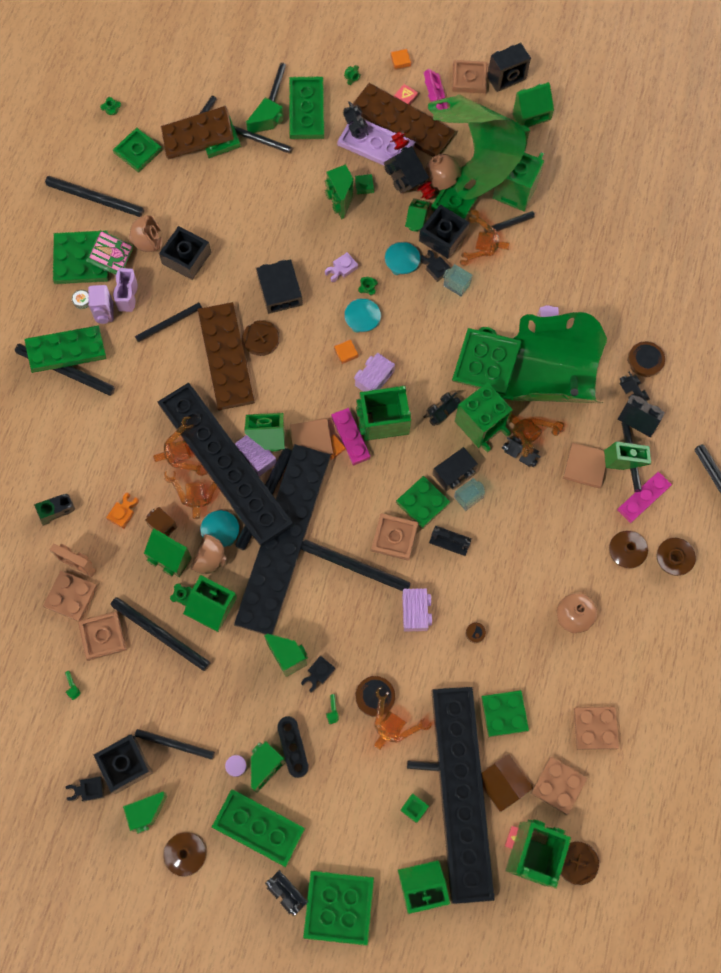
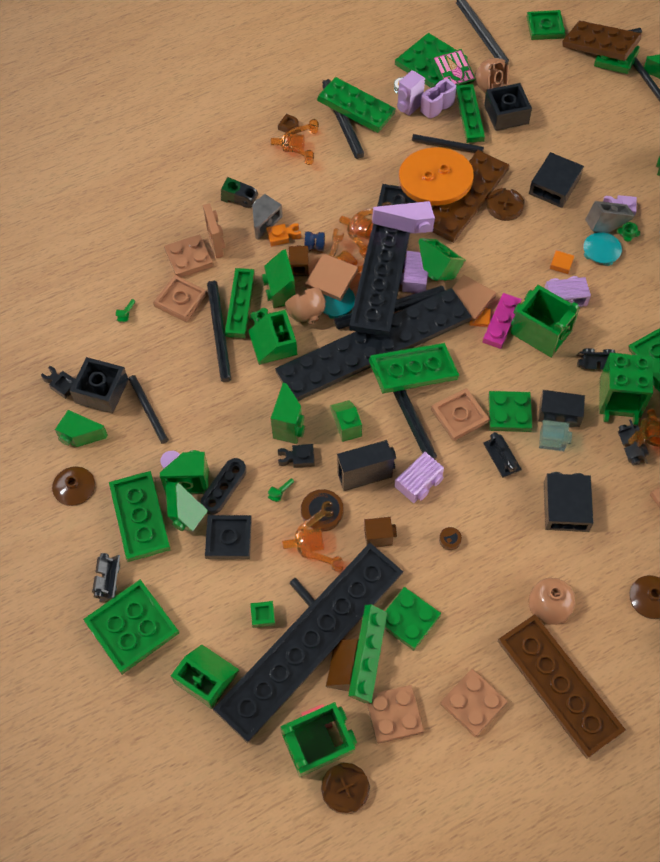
camera: 50 degrees right, 10 degrees down
(26, 411) = (288, 123): none -> reddish brown tile
(50, 425) = (295, 142): none -> clear orange piece
(94, 508) = (265, 214): none -> flat silver slope
(152, 499) = (310, 240): none -> dark blue wheel
(153, 597) = (240, 303): none -> green plate
(160, 281) = (470, 113): none -> green plate
(192, 361) = (436, 176): none -> orange plate
(202, 515) = (332, 276): none -> nougat tile
(210, 417) = (405, 217): none -> lavender slope
(287, 793) = (183, 507): none -> slope
(323, 614) = (347, 420): none -> green slope
(331, 532) = (413, 368): none -> green plate
(335, 779) = (228, 537): none -> black plate
(345, 287) = (608, 216): none -> flat silver slope
(376, 637) = (365, 465): none -> black brick
(429, 674) = (379, 531): none -> reddish brown brick
(509, 765) = (368, 654): none -> green plate
(522, 534) = (568, 502): none -> black brick
(634, 664) = (561, 686): none -> reddish brown plate

